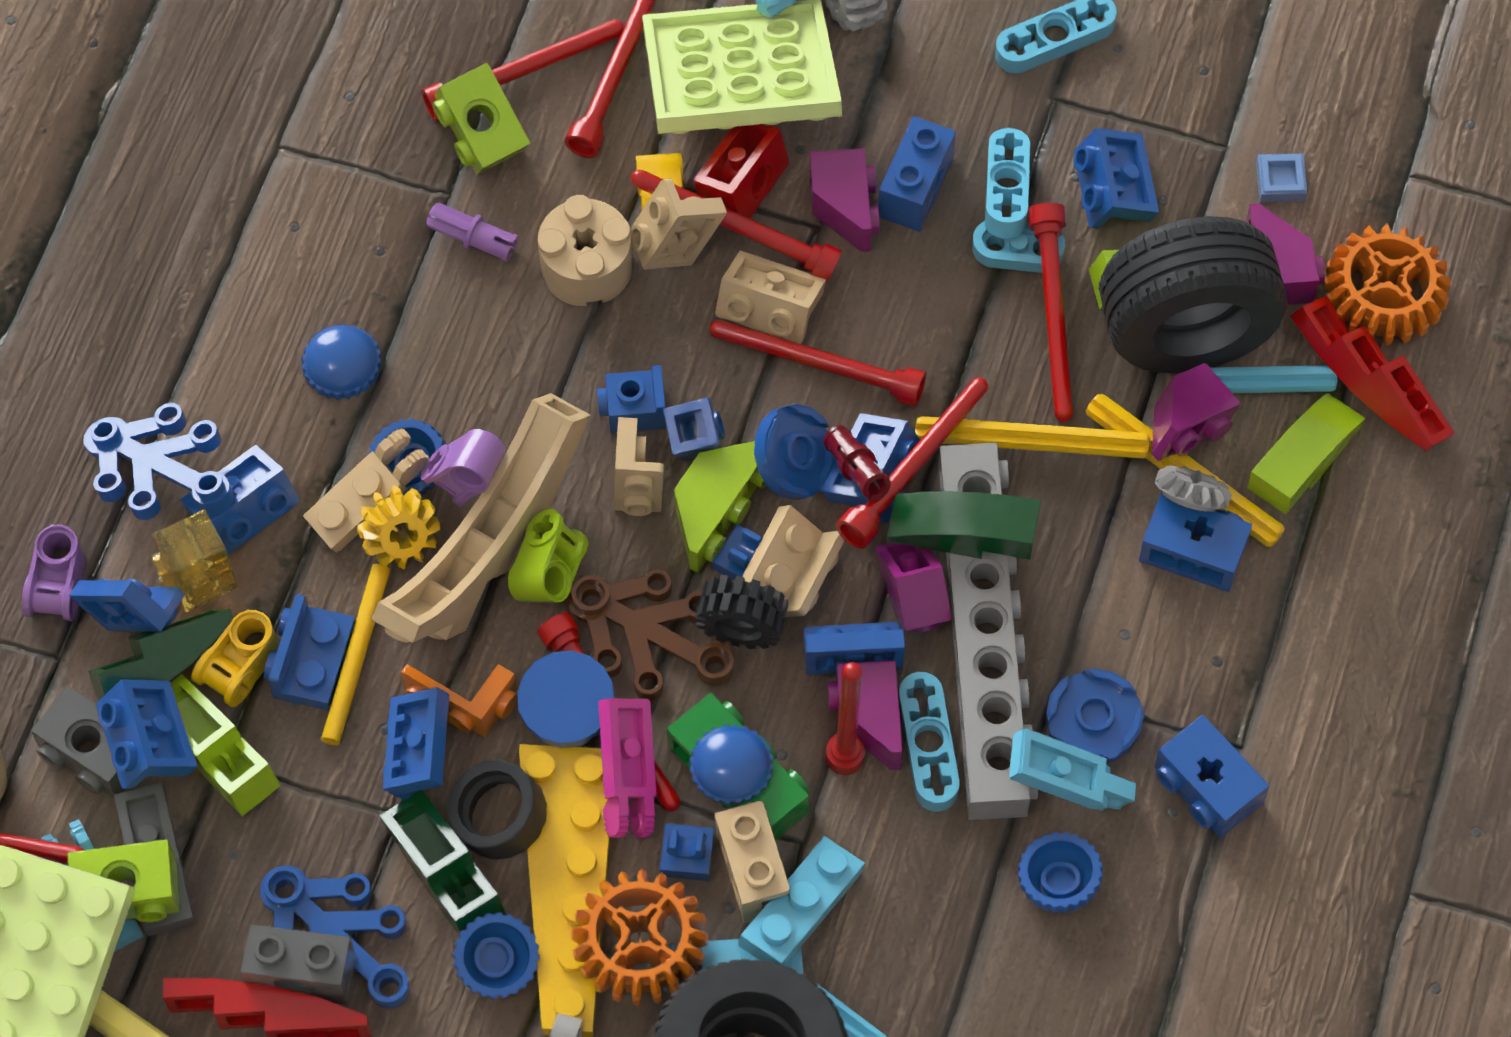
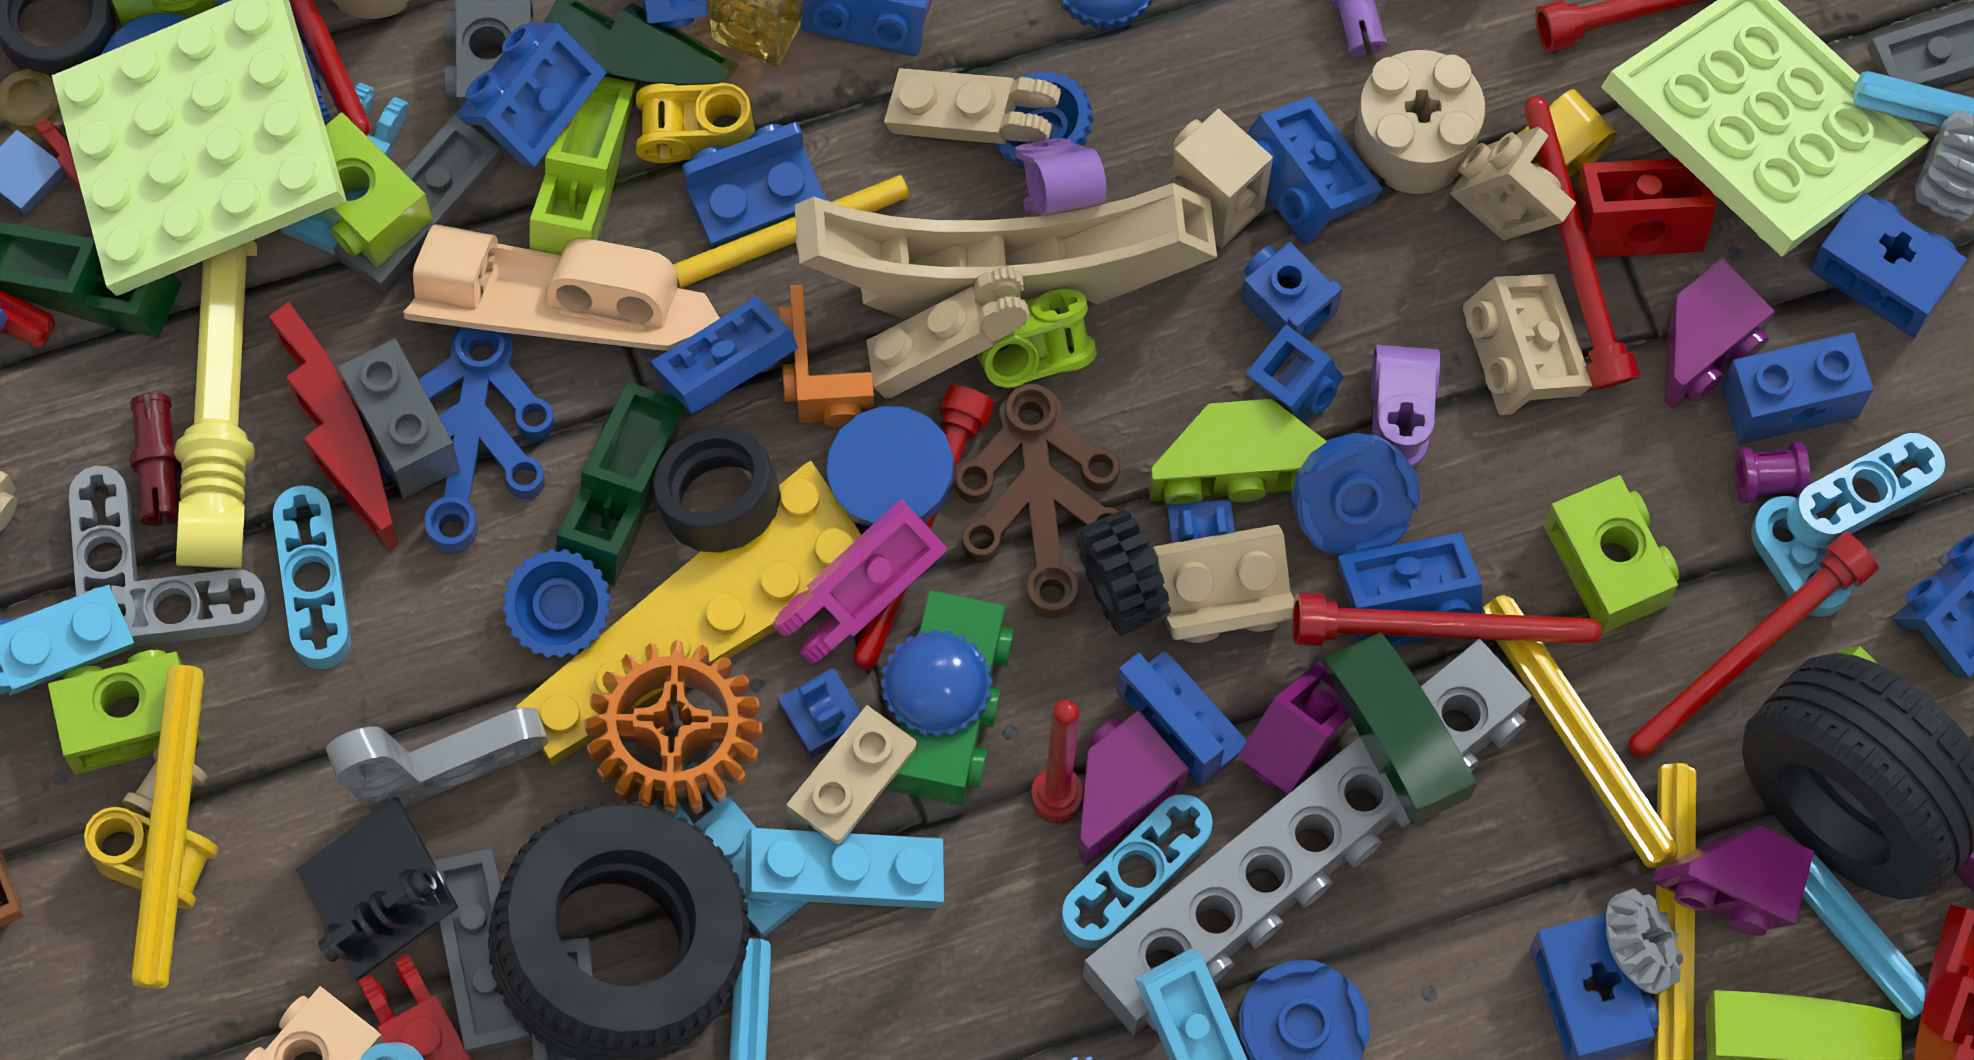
camera: 50 degrees right, 5 degrees up
(296, 807) = (583, 295): none -> light nougat panel
(402, 543) = (953, 143): yellow gear -> none
(507, 602) = (947, 332): none -> tan hinge
(528, 373) = (1224, 167): none -> tan brick
(561, 336) = (1312, 168): none -> blue bracket
(636, 482) = (1195, 345): tan bracket -> none
(750, 383) = (1405, 397): none -> medium lavender piece
(857, 462) = (1385, 565): dark red pin -> none
(881, 73) = (1899, 292): none -> blue brick
(903, 384) = (1534, 556): red piece -> none
(949, 362) = (1611, 589): none -> lime brick
(955, 224) = (1771, 472): none -> magenta bush

